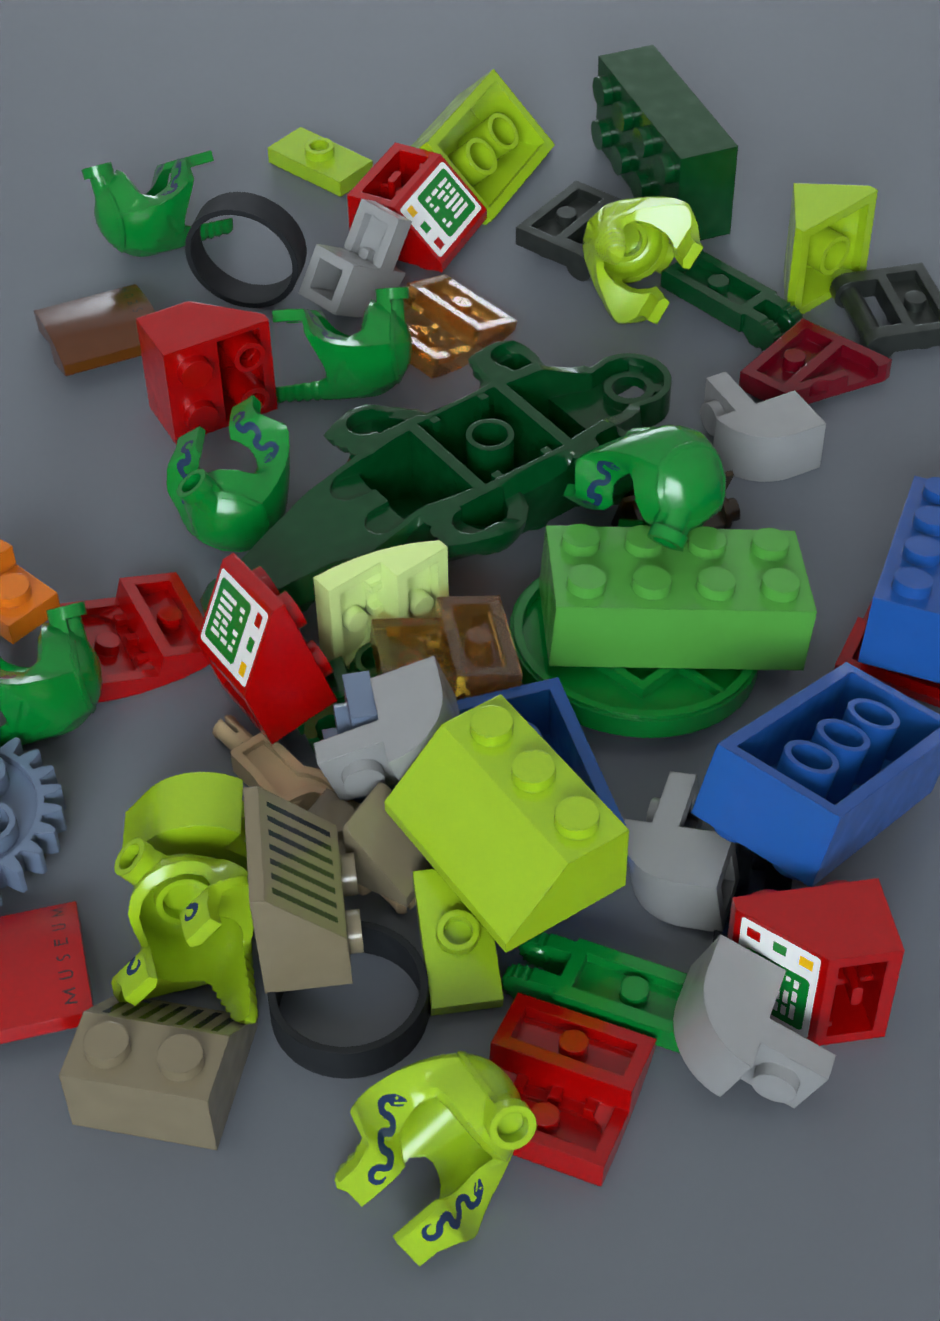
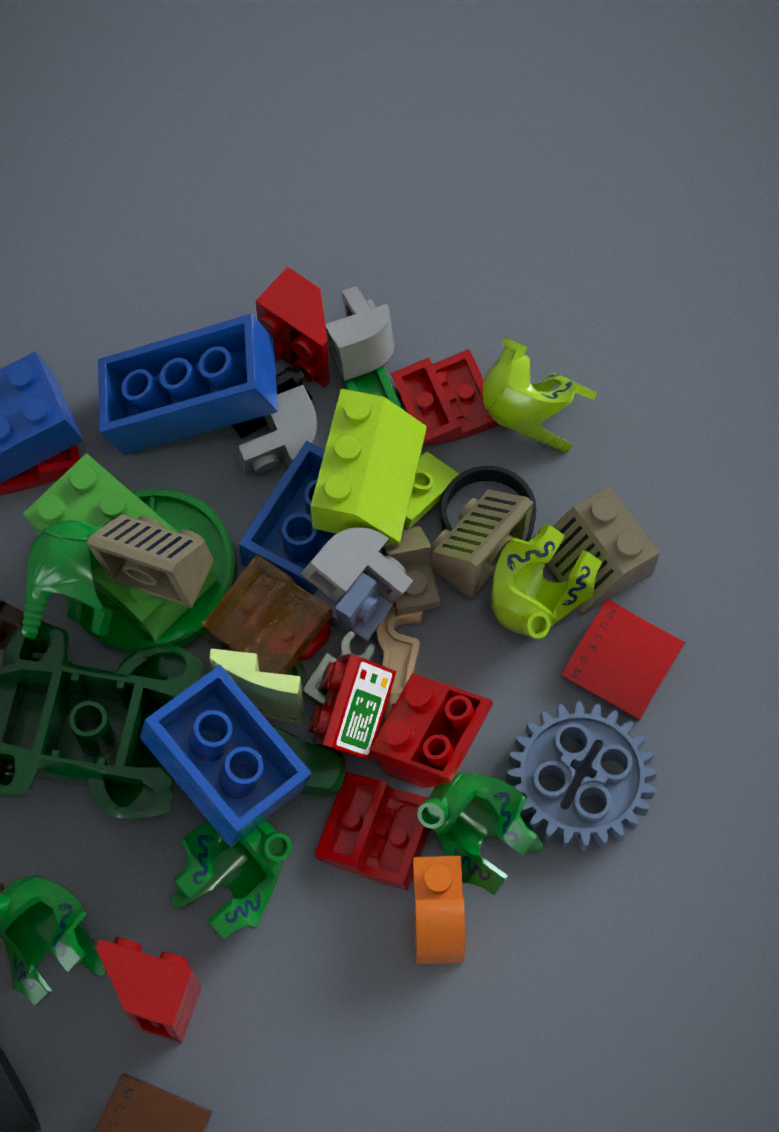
camera: 135 degrees left, 20 degrees up
(156, 702) = (429, 732): none -> red slope
(192, 816) = (479, 644): lime brick -> none
(312, 466) = (224, 755): none -> blue brick
(585, 507) = (152, 558): none -> dark tan slope

